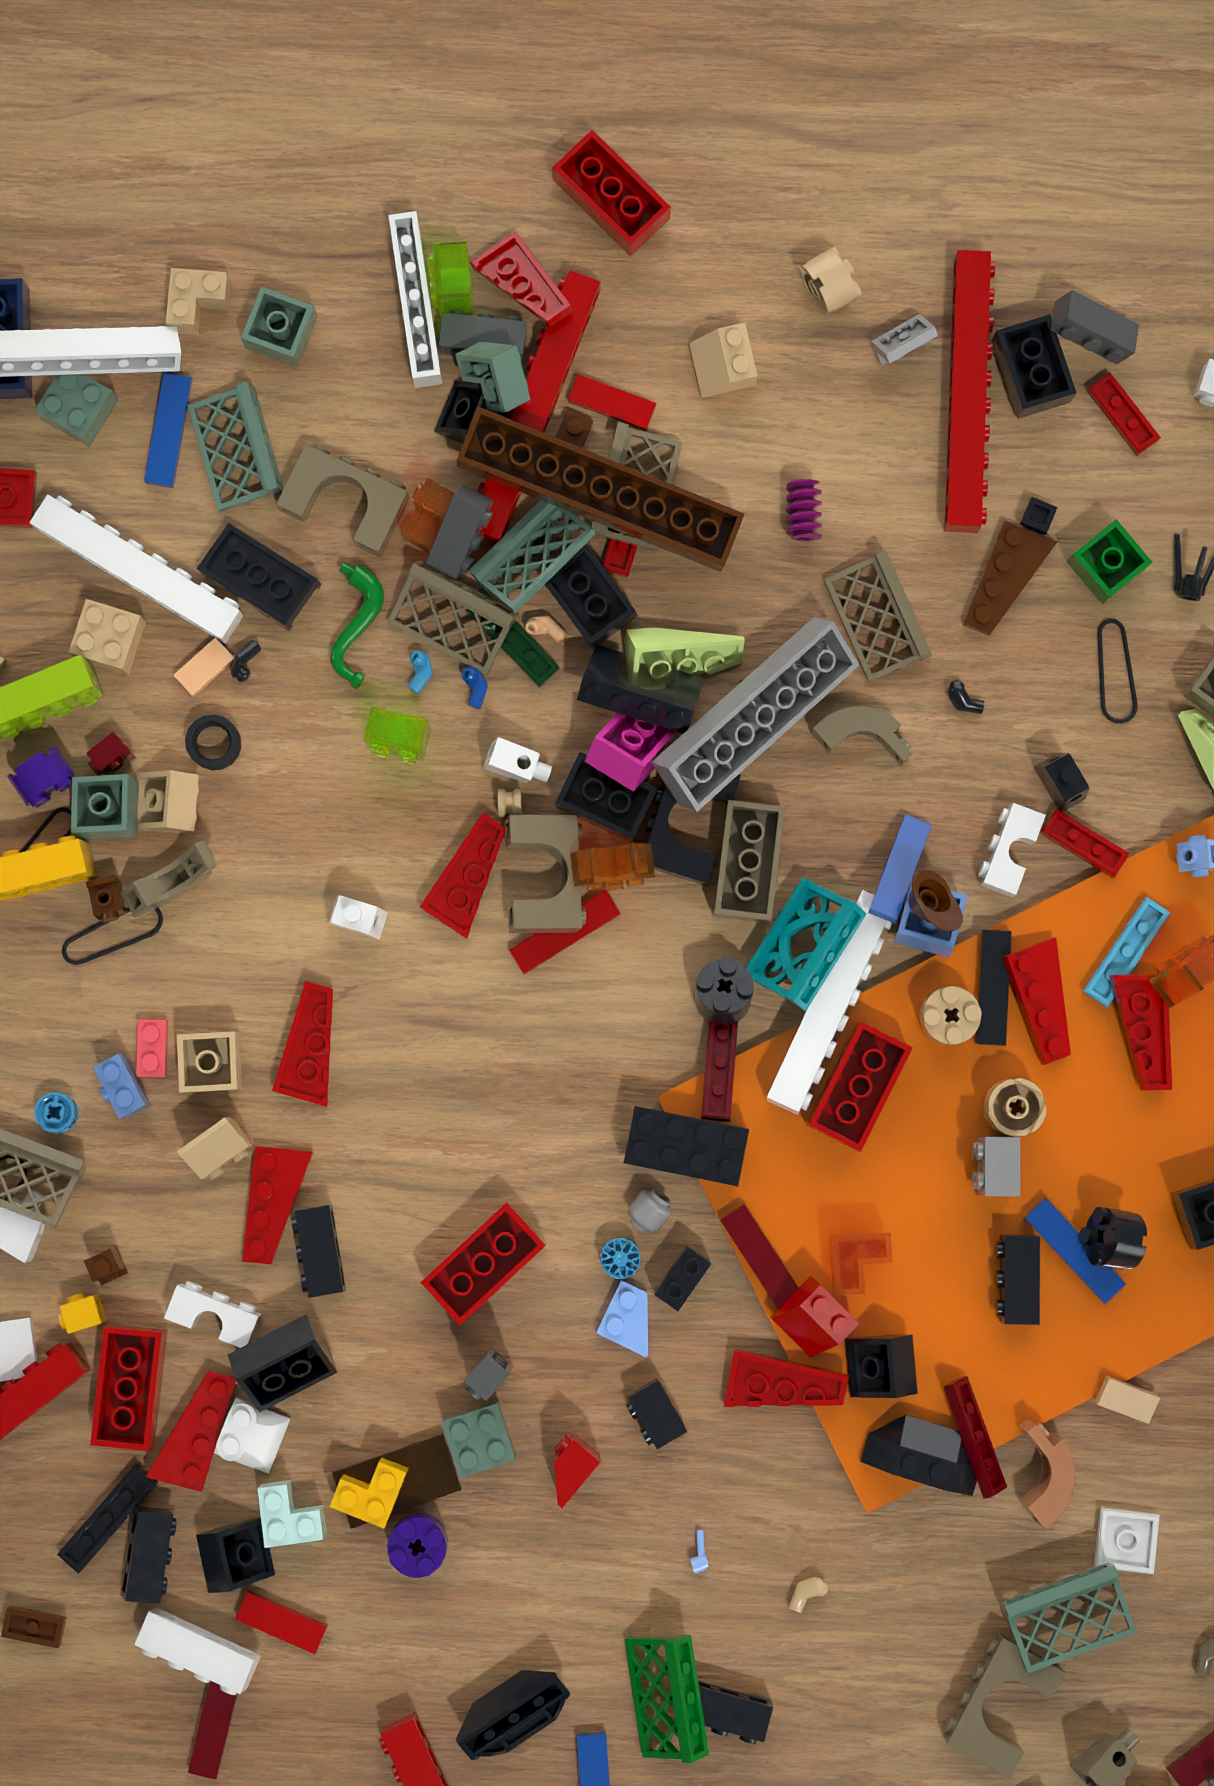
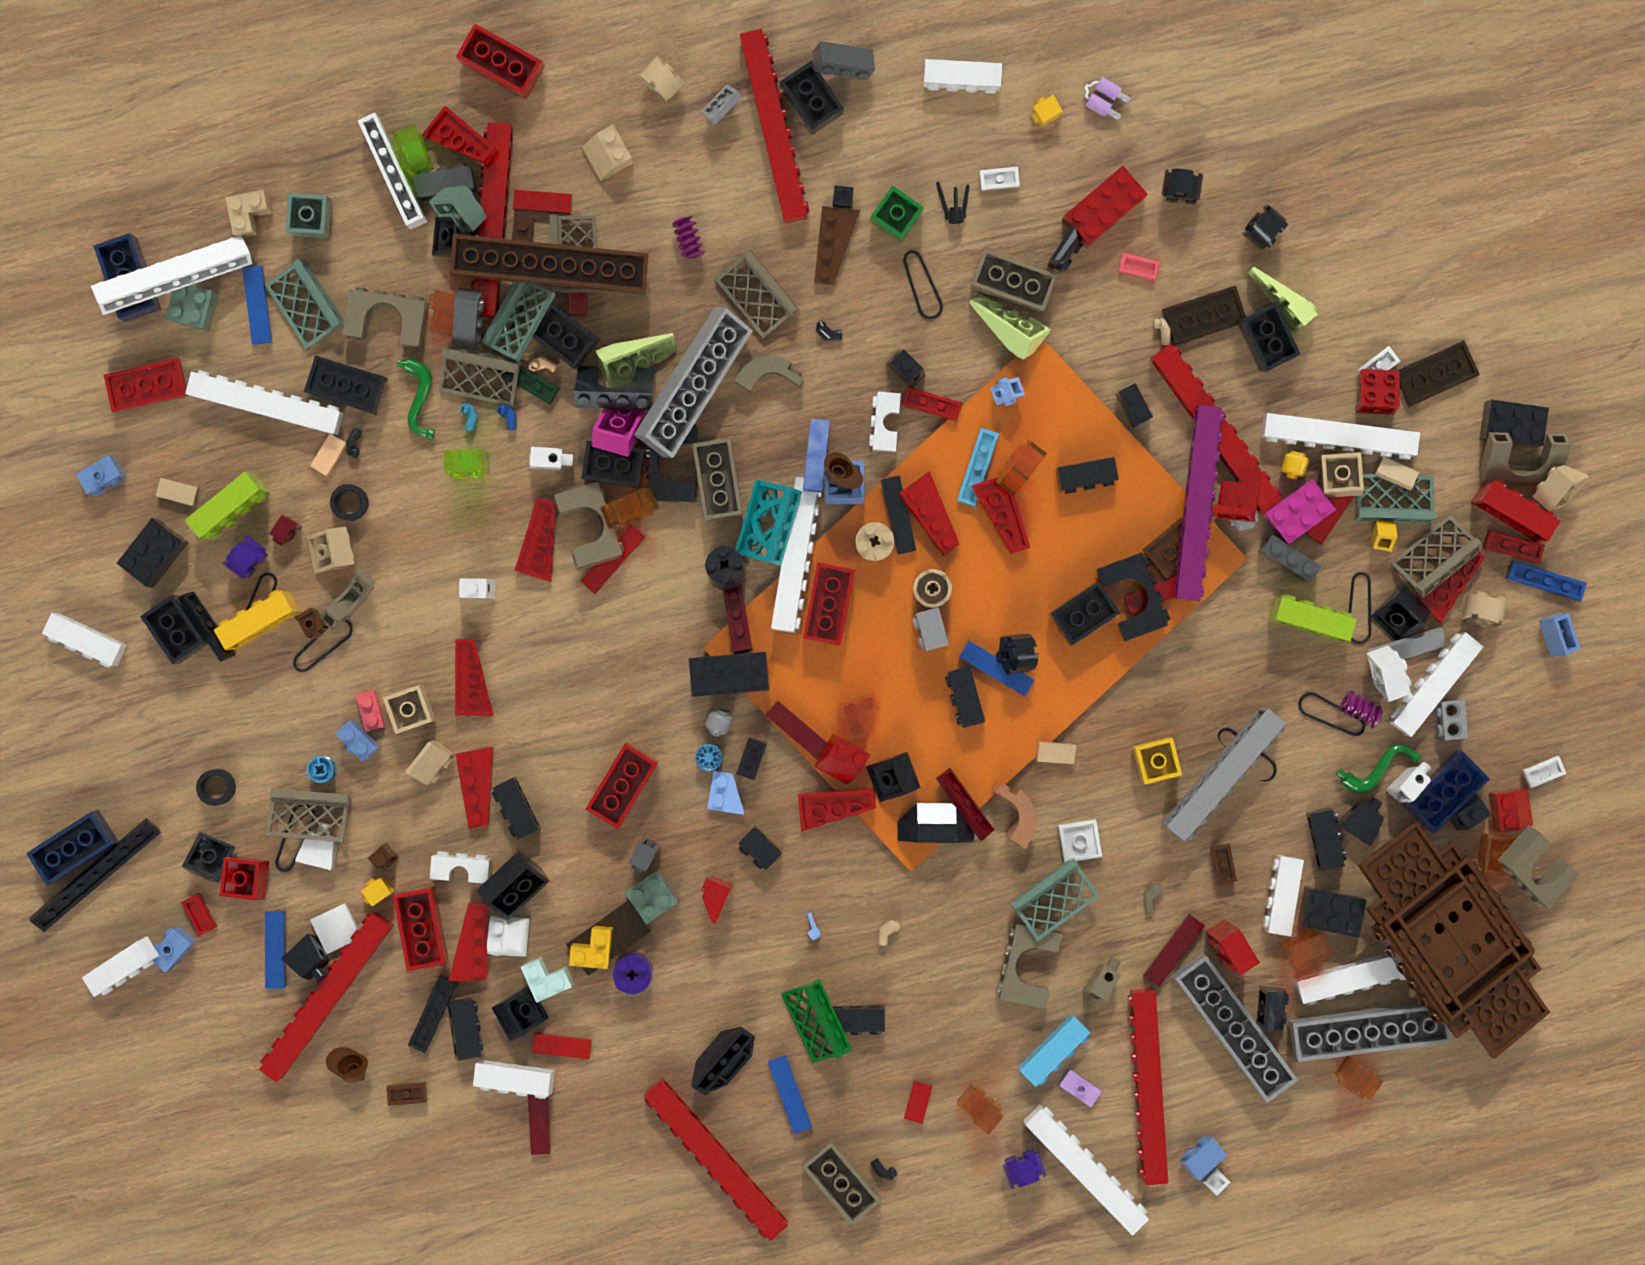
camera: 15 degrees left, 5 degrees up
(104, 807) = (291, 565): sand green brick -> none
(107, 636) = (259, 453): tan brick -> none
(509, 802) = (552, 485): tan wheel -> none
(1123, 414) = (880, 111): red tile -> none

